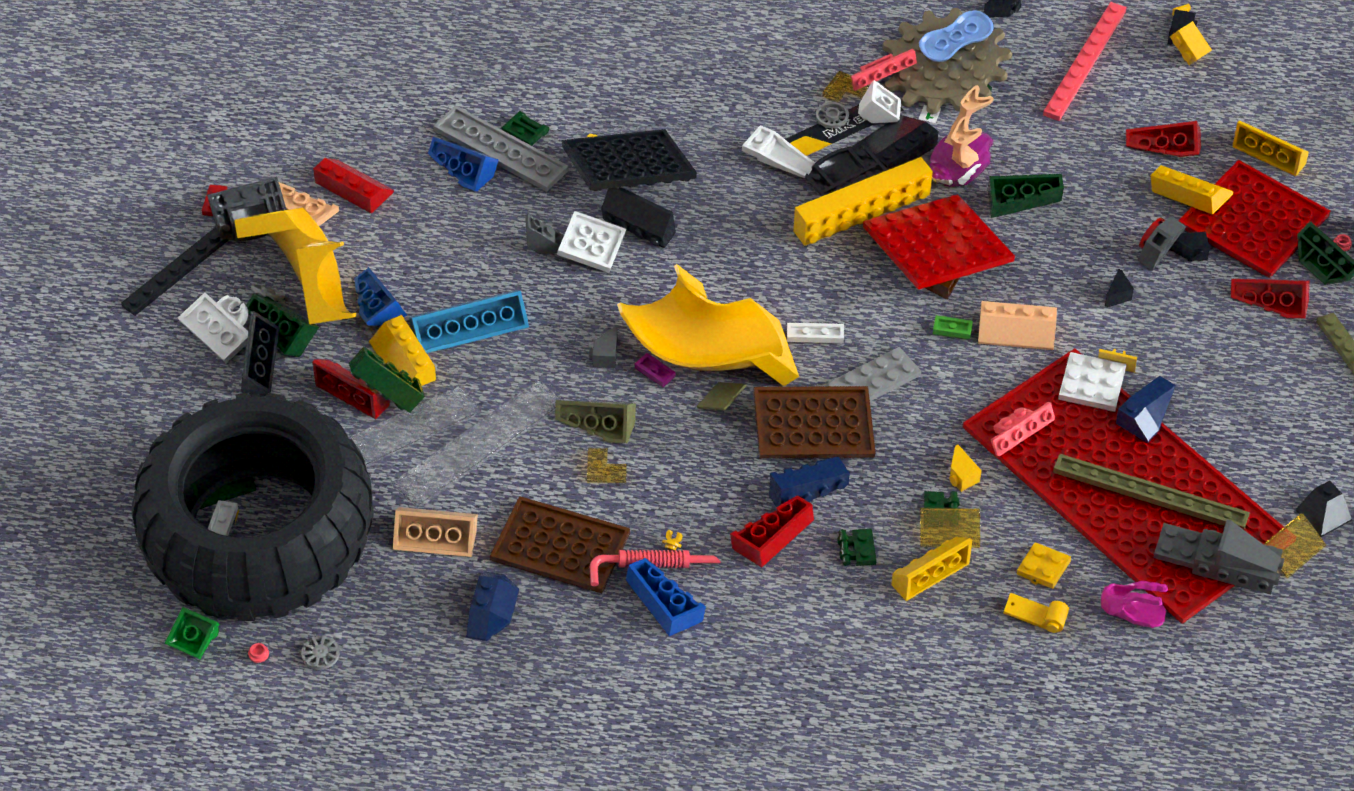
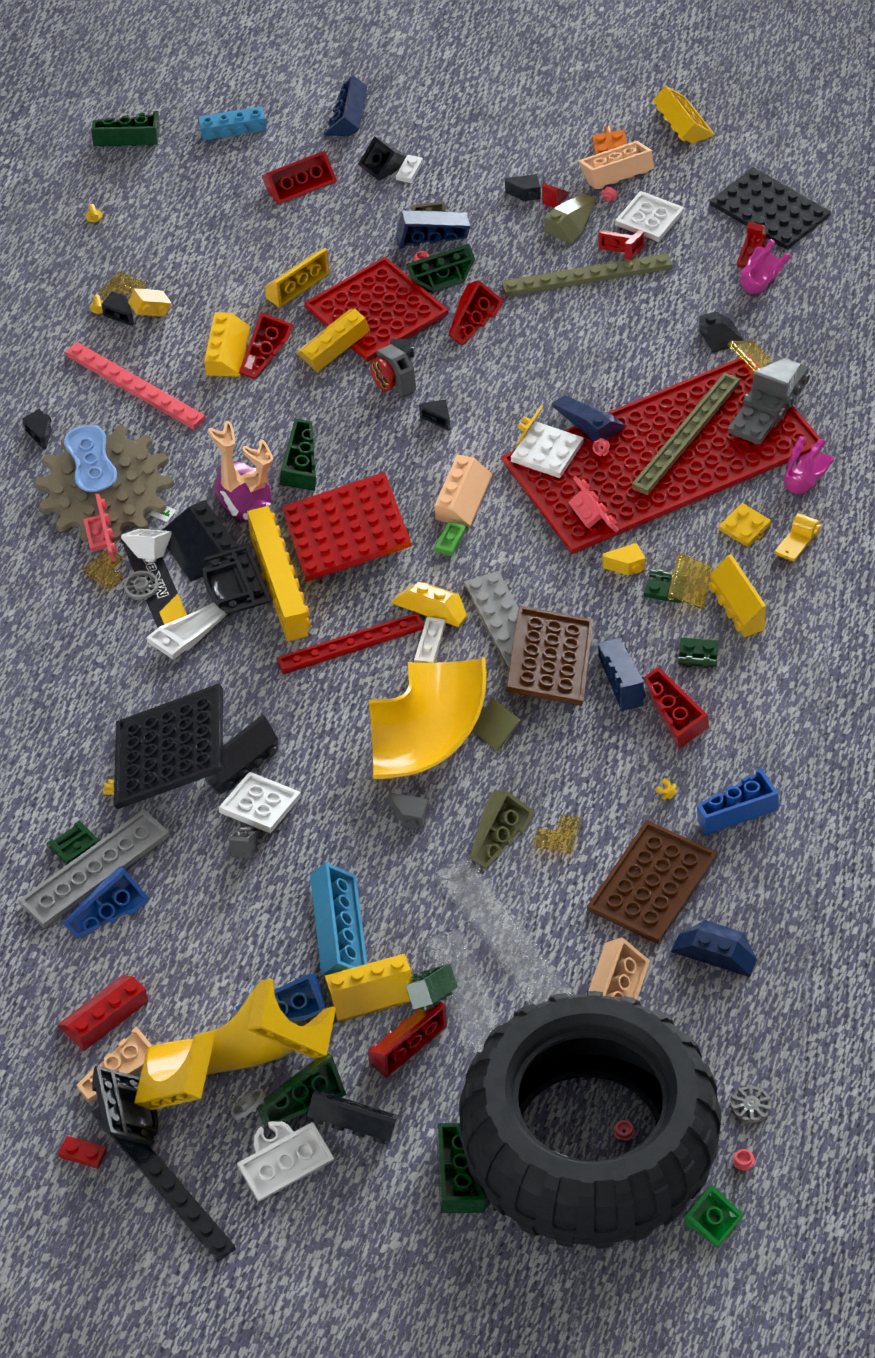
camera: 75 degrees left, 0 degrees up
(655, 370) = (445, 775): magenta plate -> none
(658, 558) = (688, 812): coral piece -> none
(801, 276) = (350, 643): none -> red tile
(866, 329) = (432, 603): none -> yellow wedge
(1106, 423) = (597, 447): none -> coral plate
(1157, 109) = (226, 345): none -> yellow slope
(1220, 24) = (120, 283): none -> clear yellow tile

